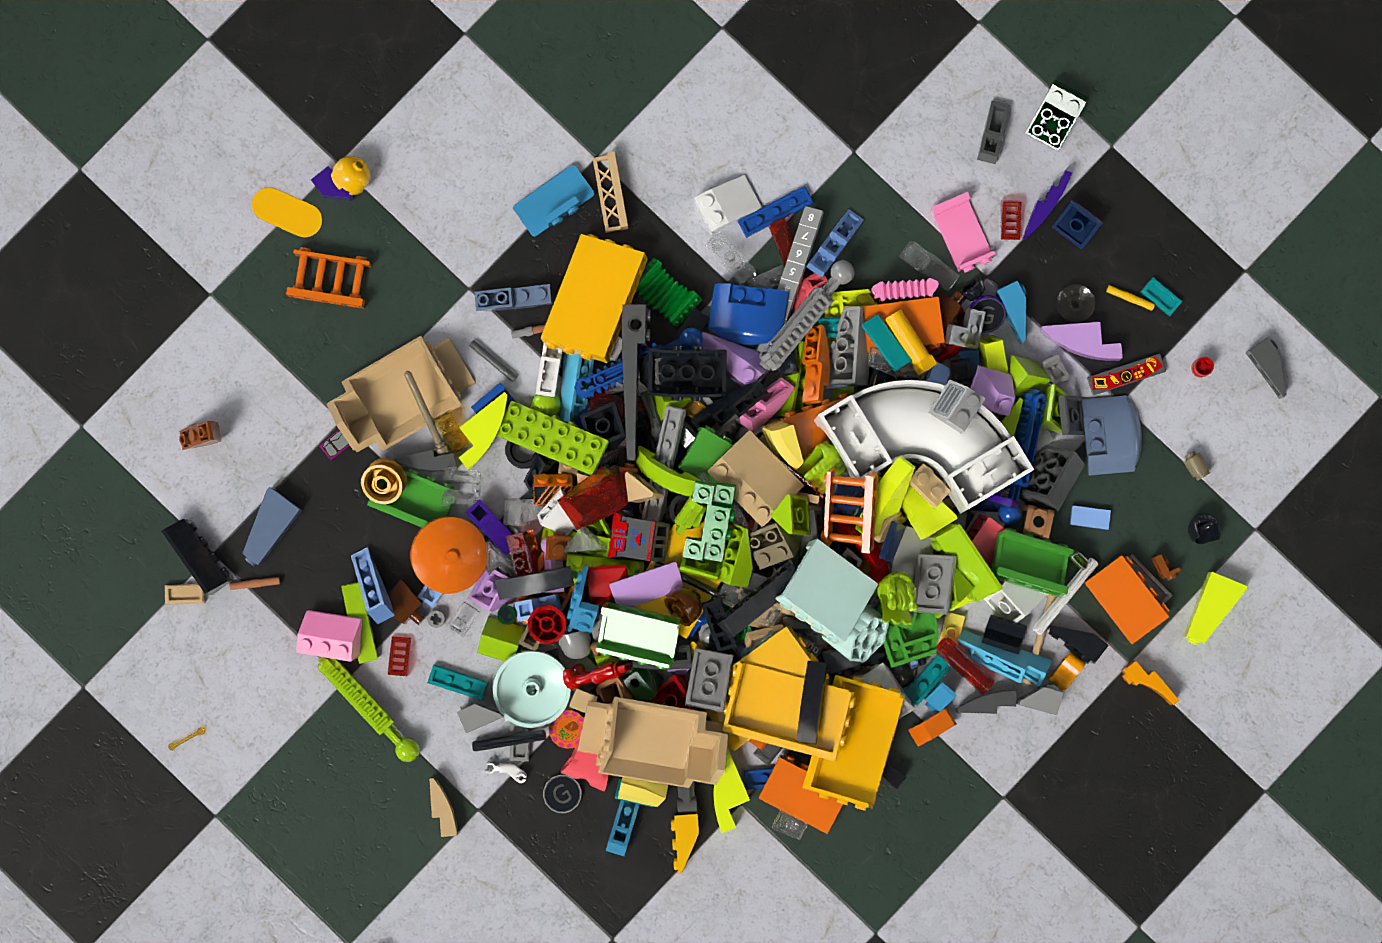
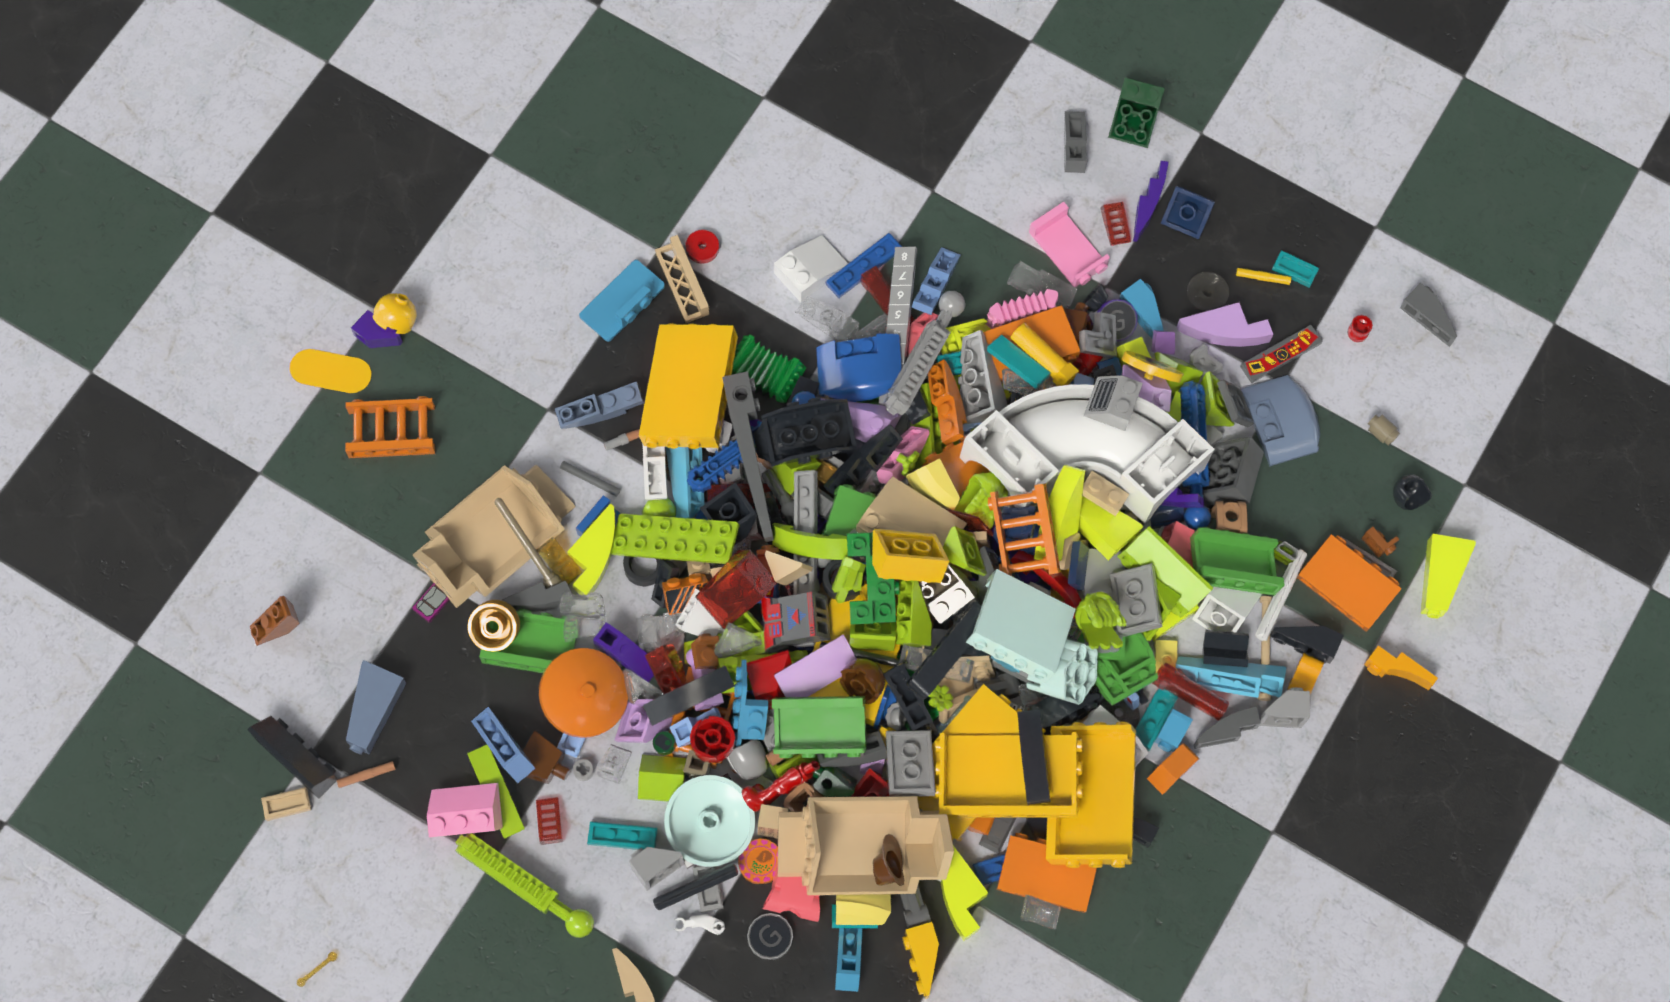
camera: 15 degrees left, 15 degrees down
(631, 171) = (698, 238): none -> red piece
(671, 762) = (889, 863): none -> reddish brown piece
(743, 513) = (908, 556): none -> yellow slope
(750, 631) = (940, 698): none -> lime plant
(767, 415) = (908, 462): none -> lime plant
(1002, 375) = (1152, 367): none -> yellow piece
(1022, 346) = (1163, 342): none -> medium lavender slope
(1090, 517) = (1284, 508): light blue tile -> none

